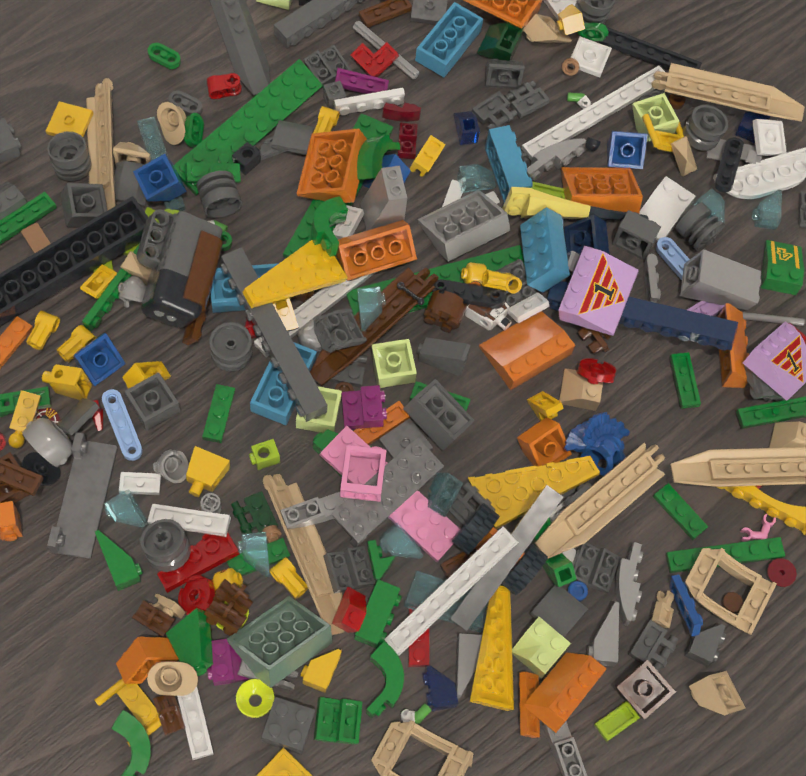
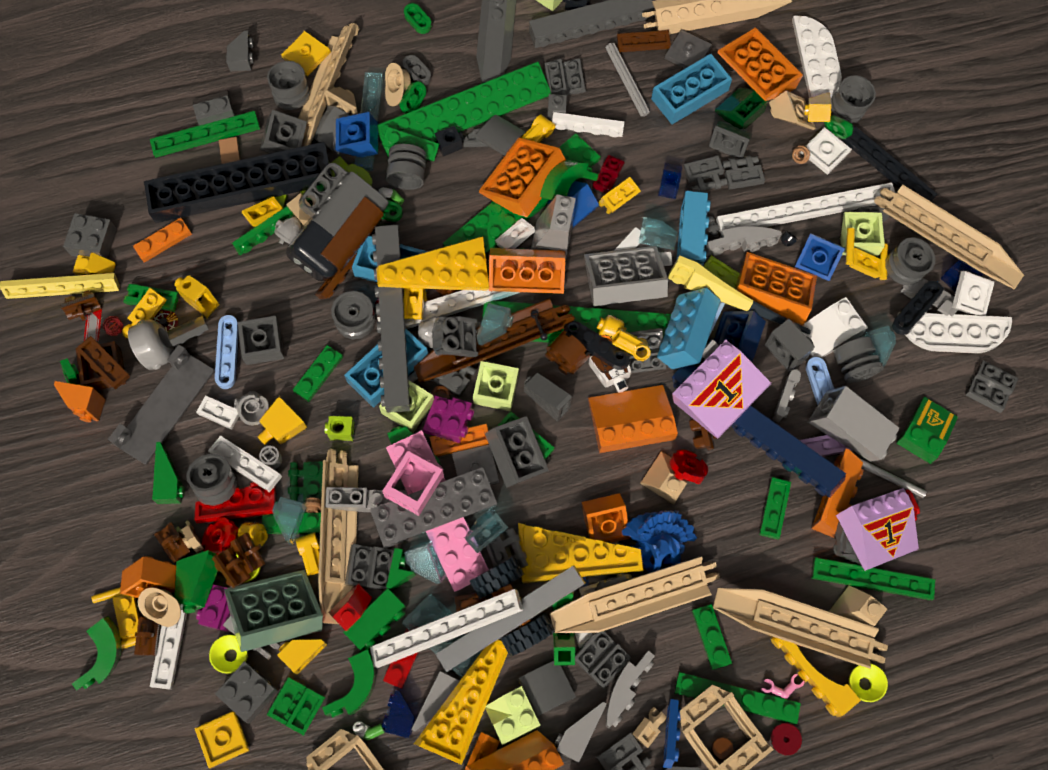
camera: 30 degrees right, 5 degrees up
(36, 463) = (129, 361): black dish -> none
(44, 325) = (200, 235): yellow piece -> none
(79, 339) = (224, 260): yellow piece -> none
(98, 417) = (210, 334): red bar -> none
(99, 359) = (232, 283): blue slope -> none
(125, 509) = (194, 433): clear light blue slope -> none
(144, 370) = (263, 309): yellow slope -> none
(222, 85) = (457, 64): red piece -> none
(328, 214) = (492, 221): green arch -> none
(361, 82) = (588, 103): magenta plate -> none
(375, 63) = (609, 88): red plate -> none
(408, 113) = (619, 147): dark red slope -> none
(528, 307) = (651, 379): white plate -> none
(545, 405) = (623, 481): yellow slope -> none
(578, 590) = (575, 674): blue tile -> none
(580, 98) = (797, 190): arm -> none
(676, 101) = (893, 225): reddish brown tile -> none
(684, 156) = (875, 283): tan slope -> none
(769, 212) = (938, 369): clear light blue slope -> none

